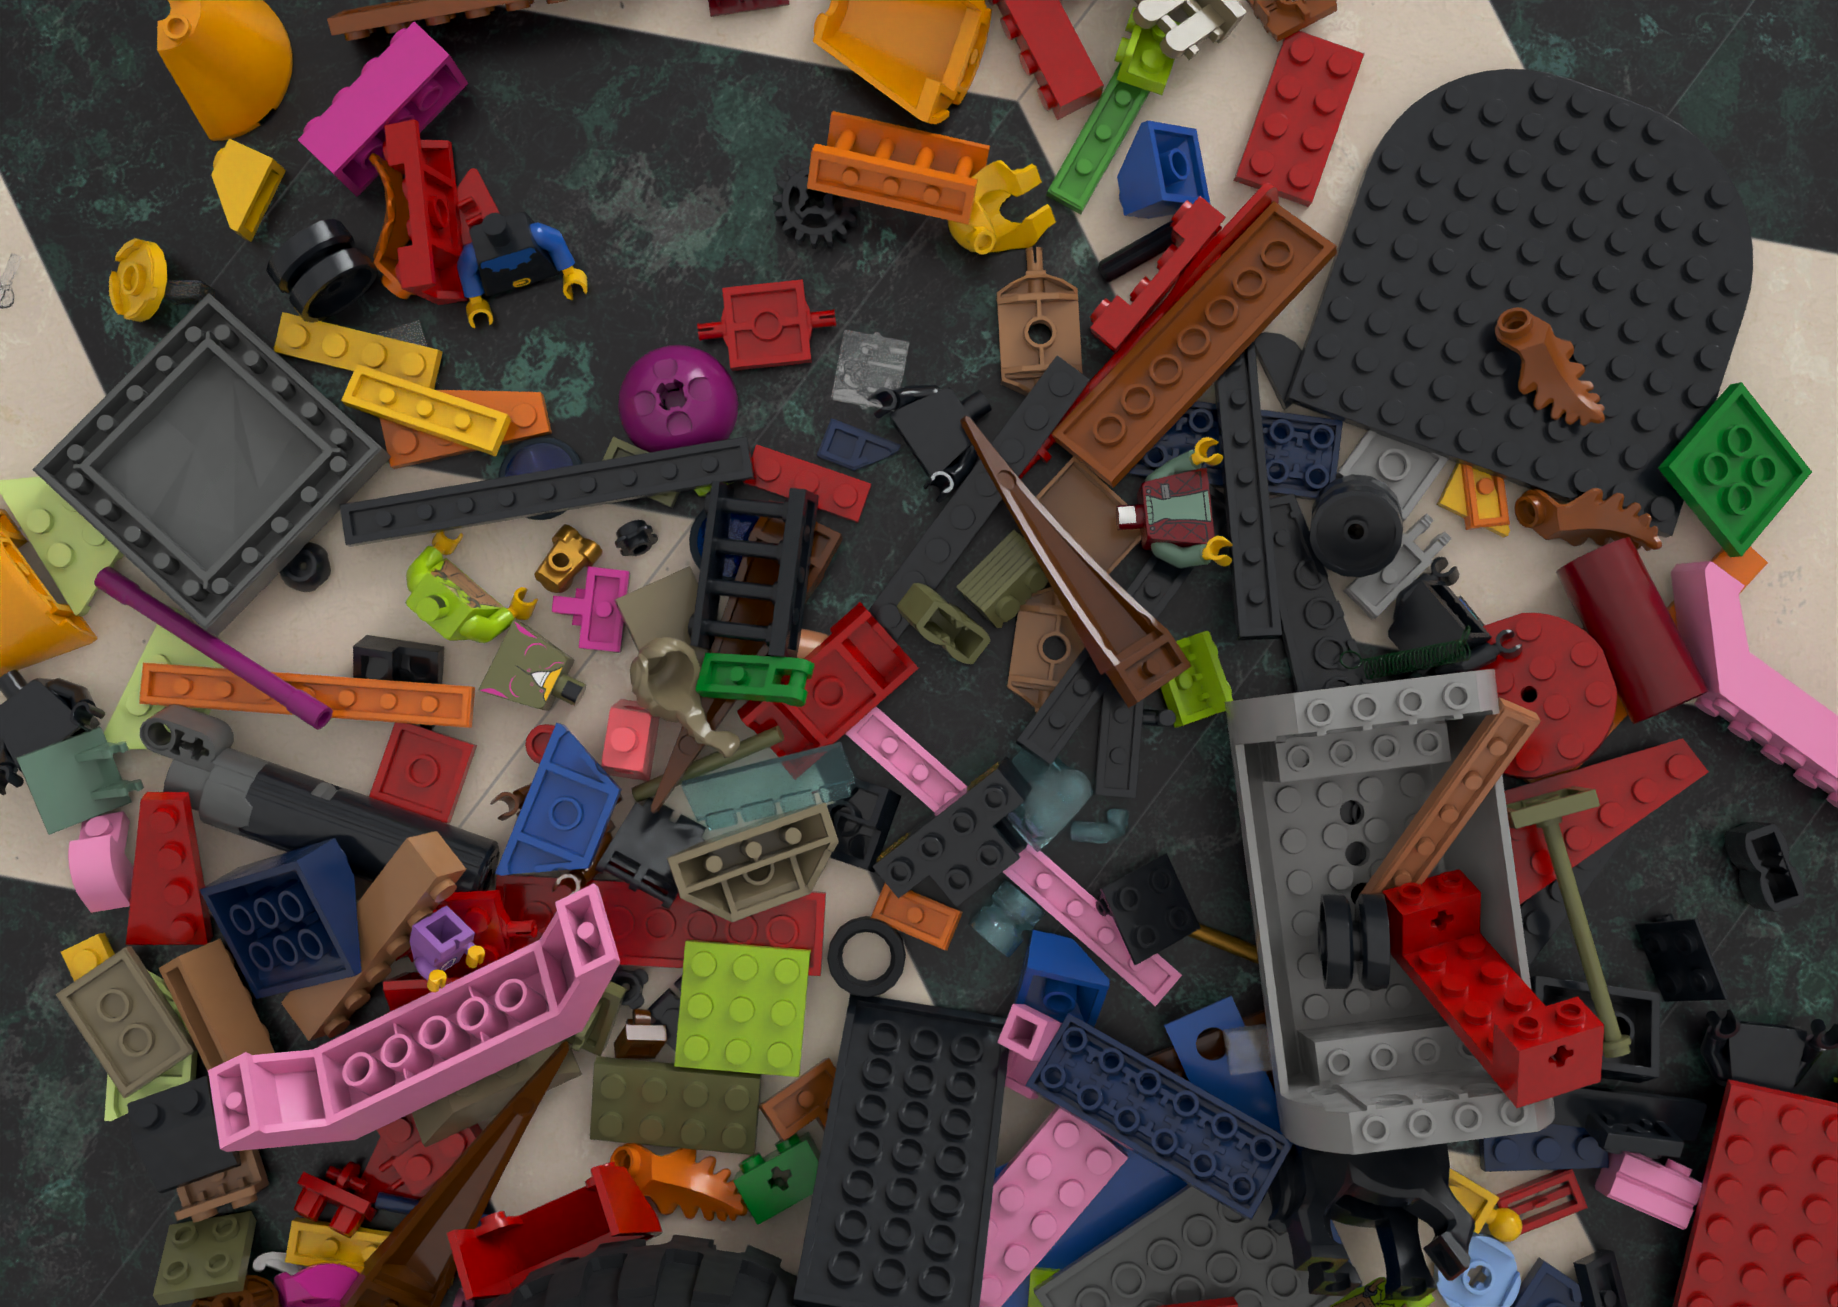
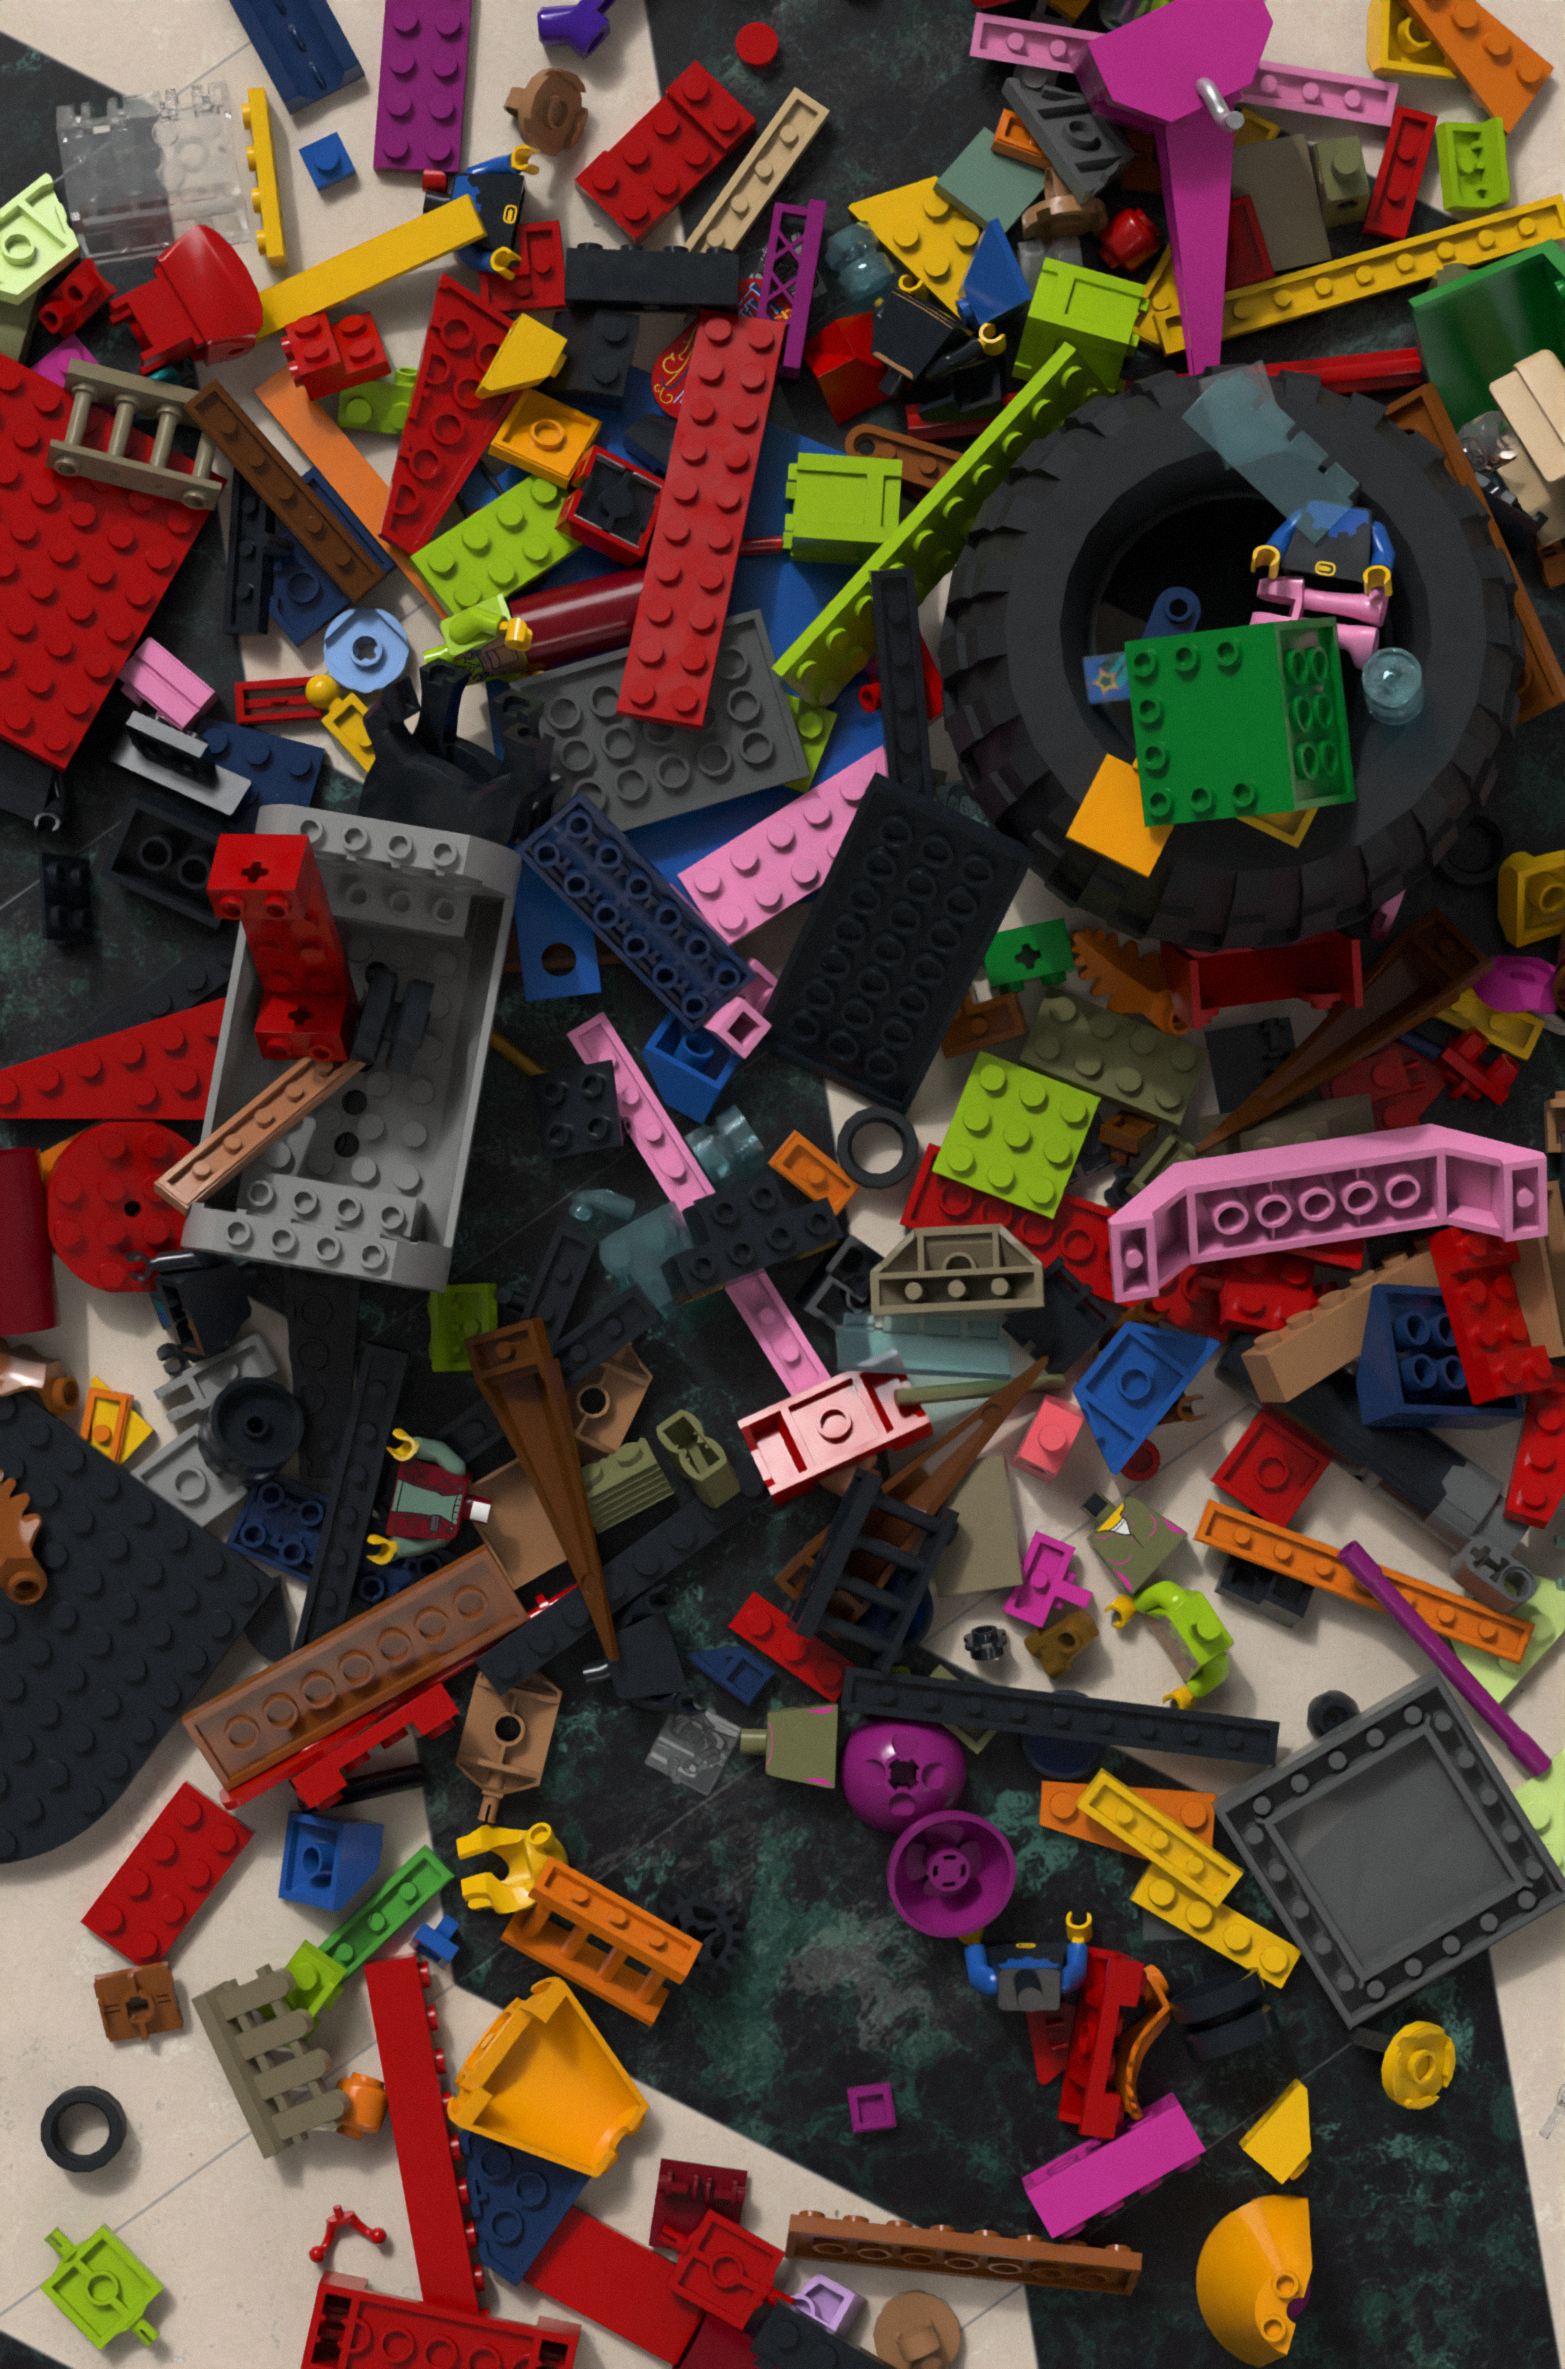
camera: 160 degrees left, 0 degrees up
(257, 973) = (1488, 1315): none -> red piece
(440, 943) = (1290, 1289): medium lavender piece -> none
(552, 1141) = (1246, 1057): none -> black hinge
(603, 320) = (961, 1890): none -> magenta piece
(617, 103) = (871, 2107): none -> magenta tile
(665, 685) = (993, 1477): dark tan hair -> none
(754, 678) = (904, 1460): green plate -> none
(766, 325) = (785, 1824): red plate -> none
(777, 398) = (797, 1743): none -> olive torso
(1045, 128) = (436, 1943): none -> blue tile
(1247, 1049) = (528, 945): clear plate -> none
(1460, 643) = (195, 1278): dark green piece -> none
(1547, 813) = (159, 1085): olive tile -> none

